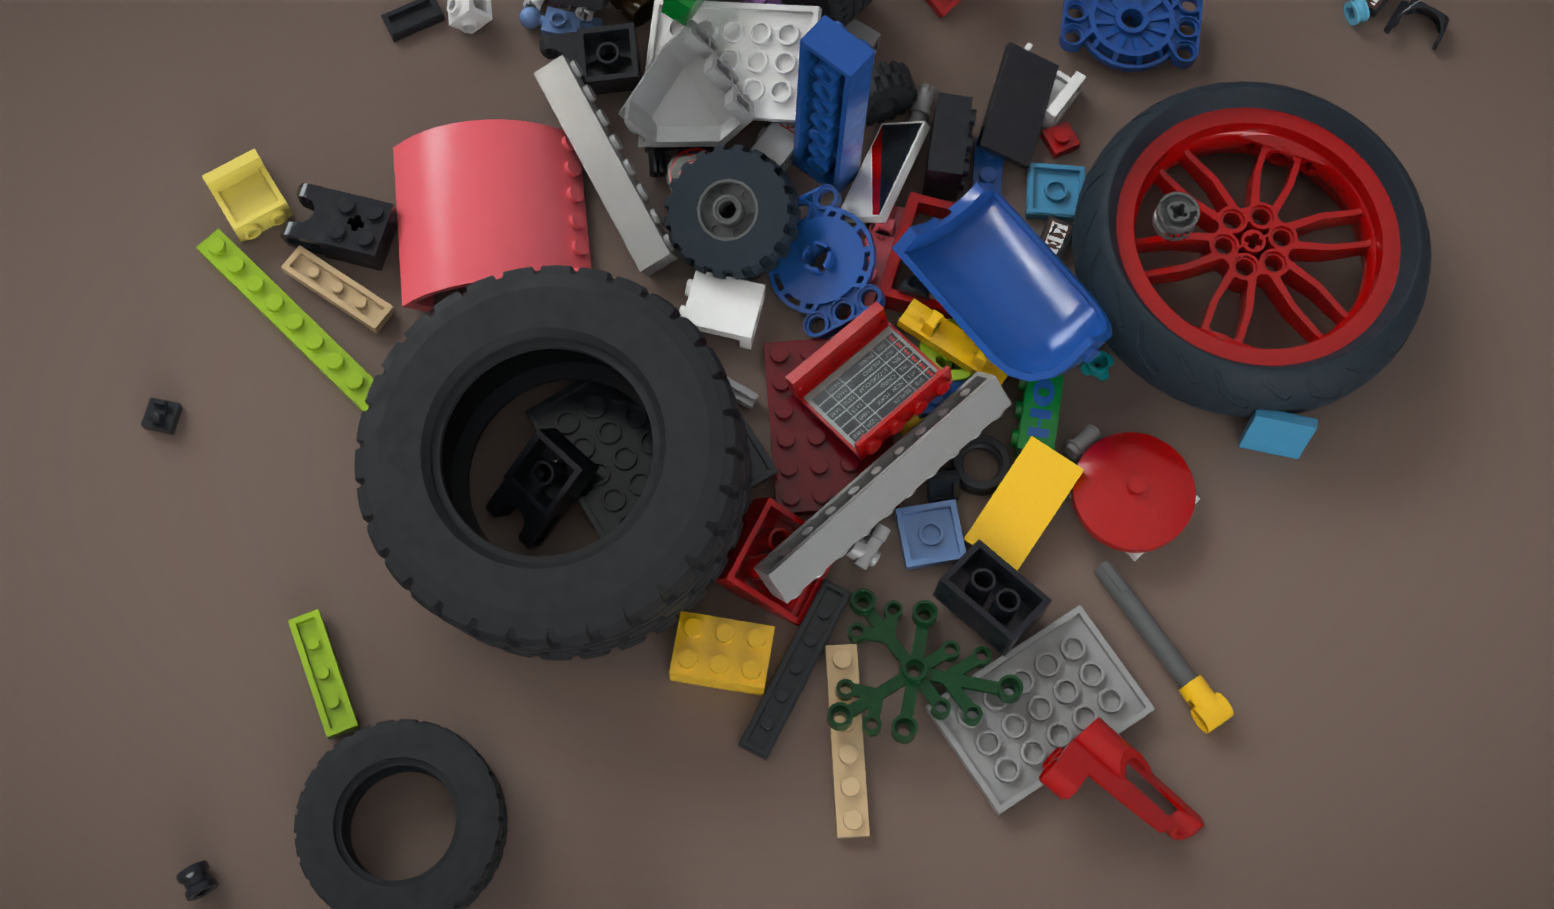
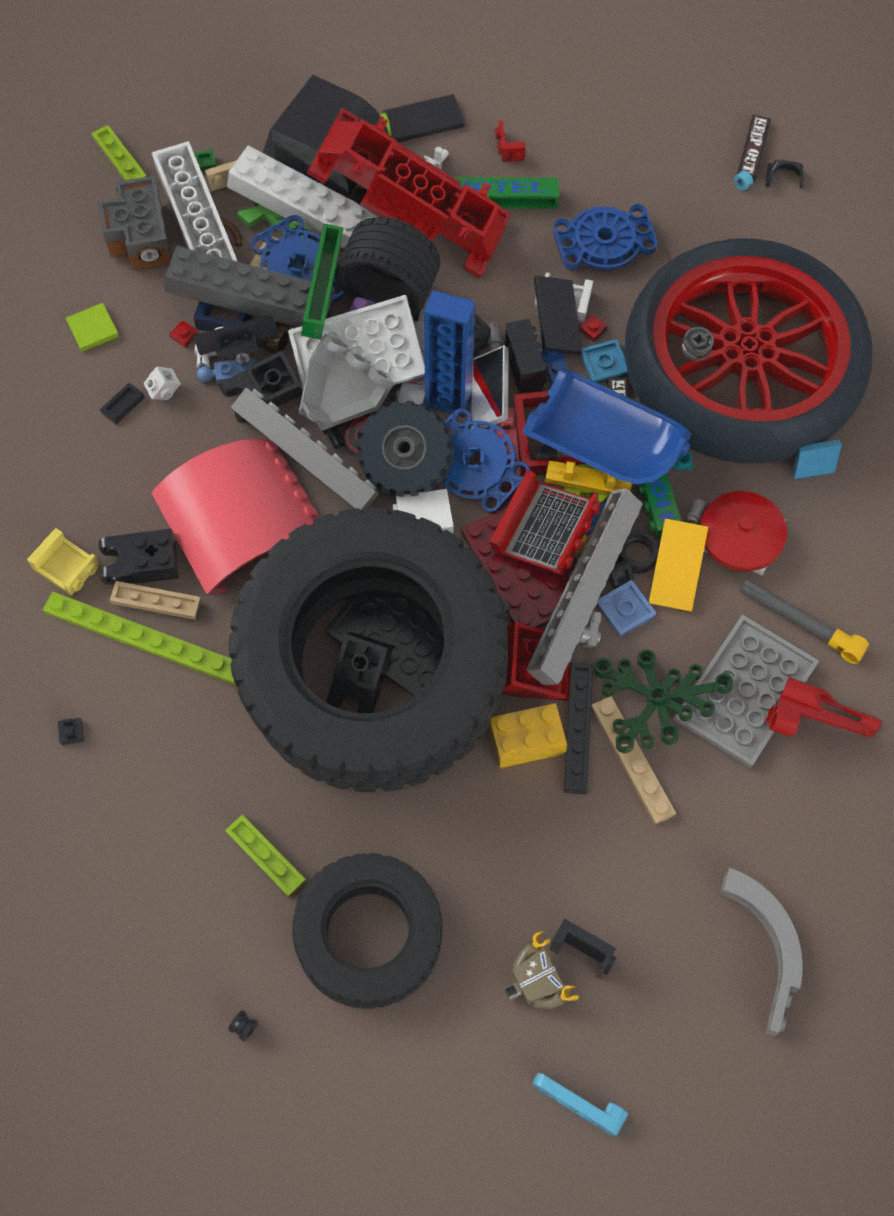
camera: 20 degrees left, 5 degrees down
(991, 597) = (685, 630): black brick -> none

